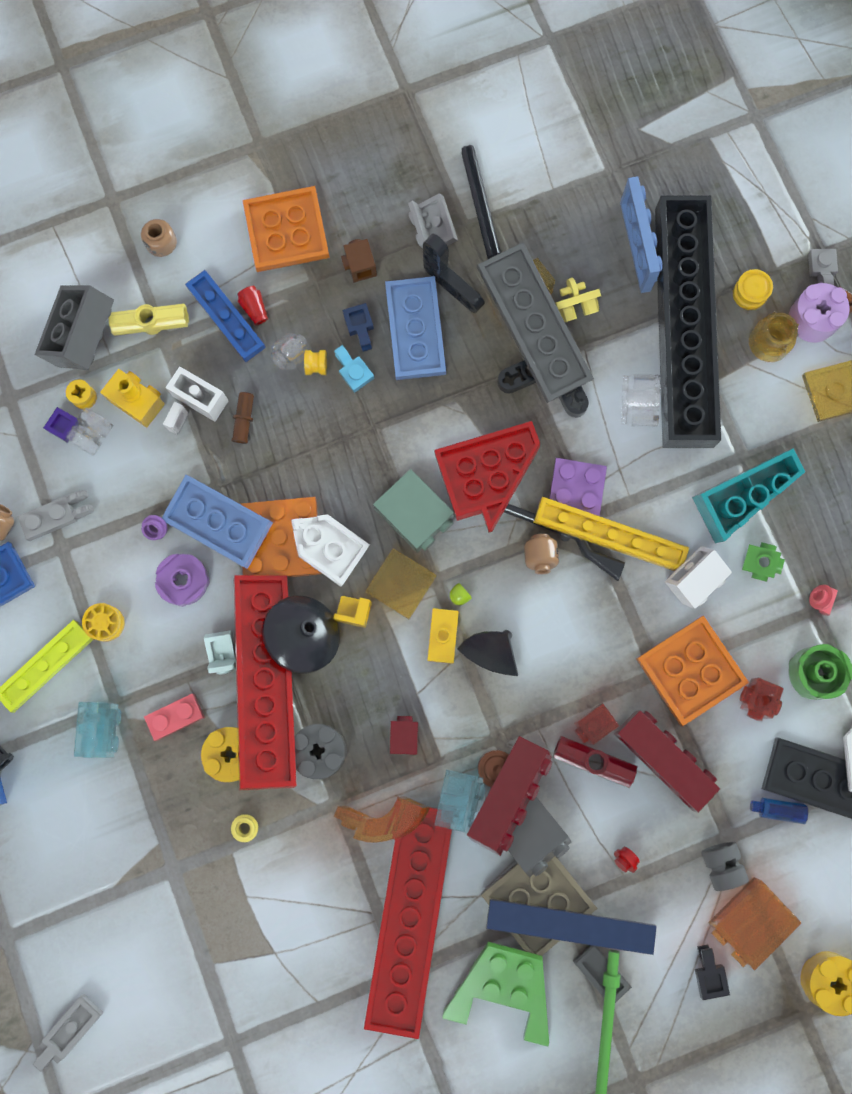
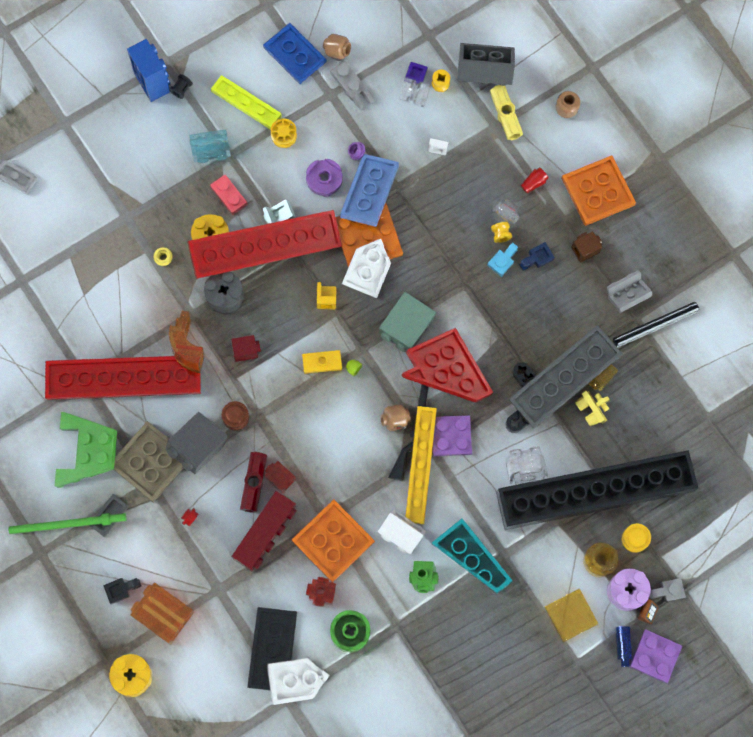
camera: 70 degrees right, 5 degrees down
(132, 397) = (446, 114): yellow brick -> none
(197, 394) = (457, 156): white brick -> none
(225, 316) = (522, 163): blue plate -> none
(243, 418) = (448, 192): reddish brown axle -> none
(289, 641) = (290, 262): black dish -> none
(401, 584) = (353, 325): clear yellow tile -> none
(415, 328) = (545, 296): medium blue plate -> none
(436, 264) = (588, 311): black beam -> none
(459, 801) = (207, 390): clear light blue brick -> none
(491, 651) = (317, 395): black shield -> none
(509, 796) = (217, 421): dark red brick -> none
(571, 926) = (137, 484): dark blue tile -> none
(640, 237) = (659, 441): medium blue plate -> none
(725, 867) = (191, 588): dark grey wheel -> none
(780, 810) = (244, 621): clear blue cylinder -> none
(823, 598) = (406, 629): coral plate -> none

